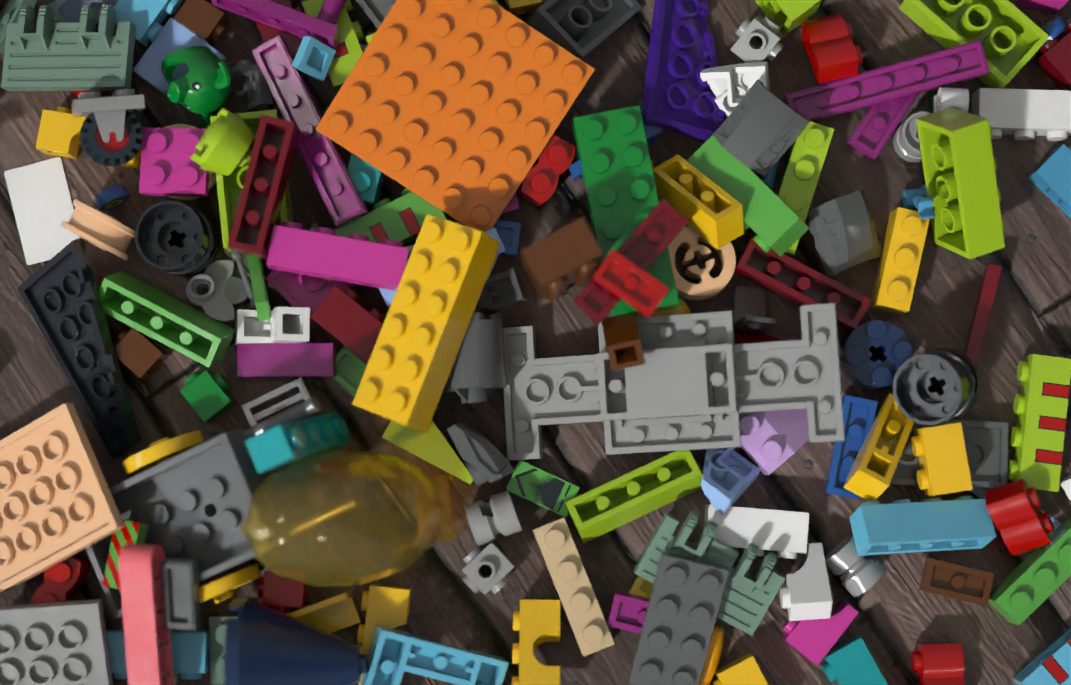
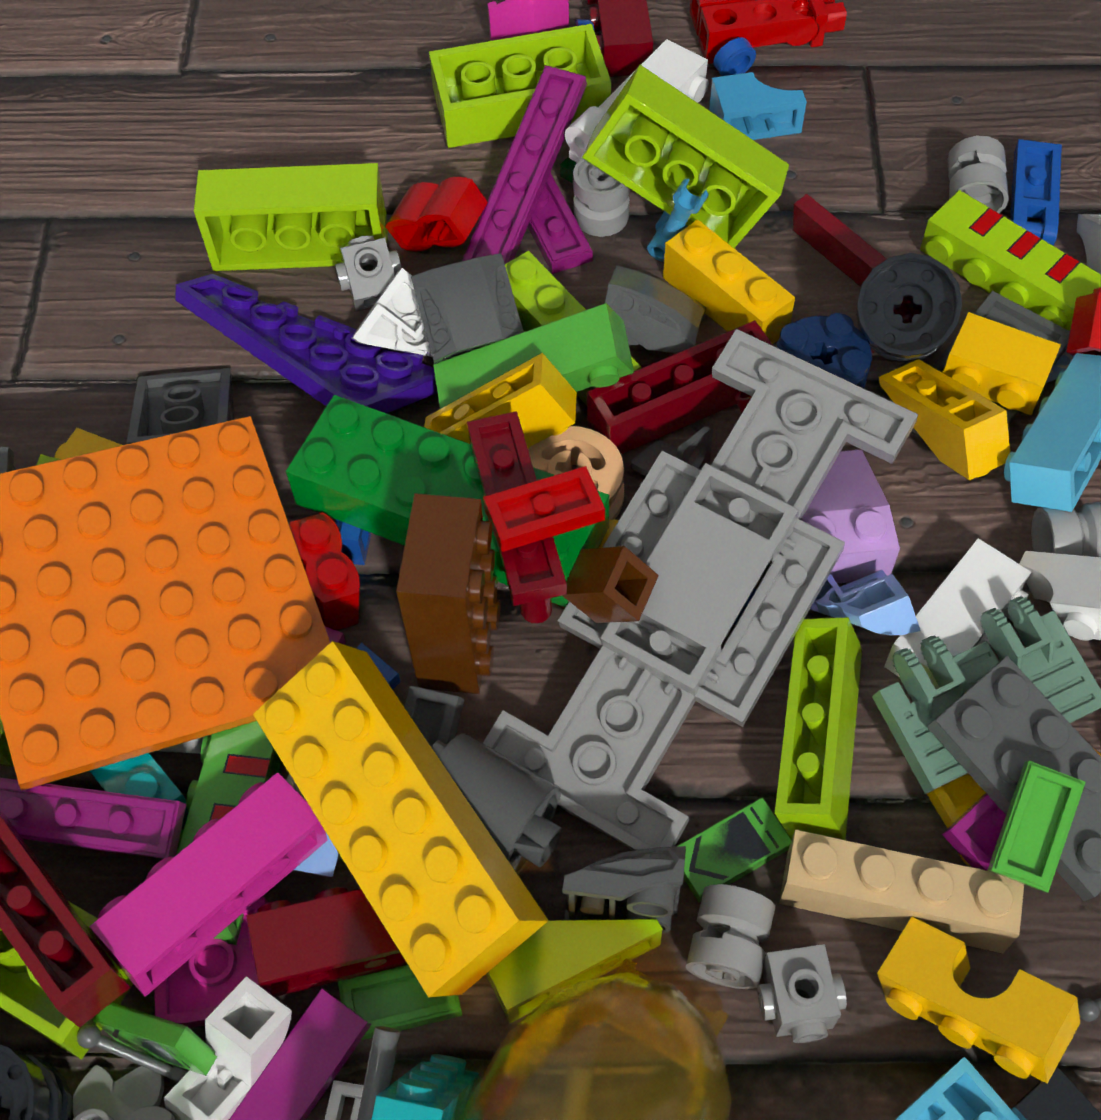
camera: 55 degrees left, 25 degrees down
(640, 636) = (1036, 826): none -> bright green tile
(858, 420) = (934, 480): blue plate -> none

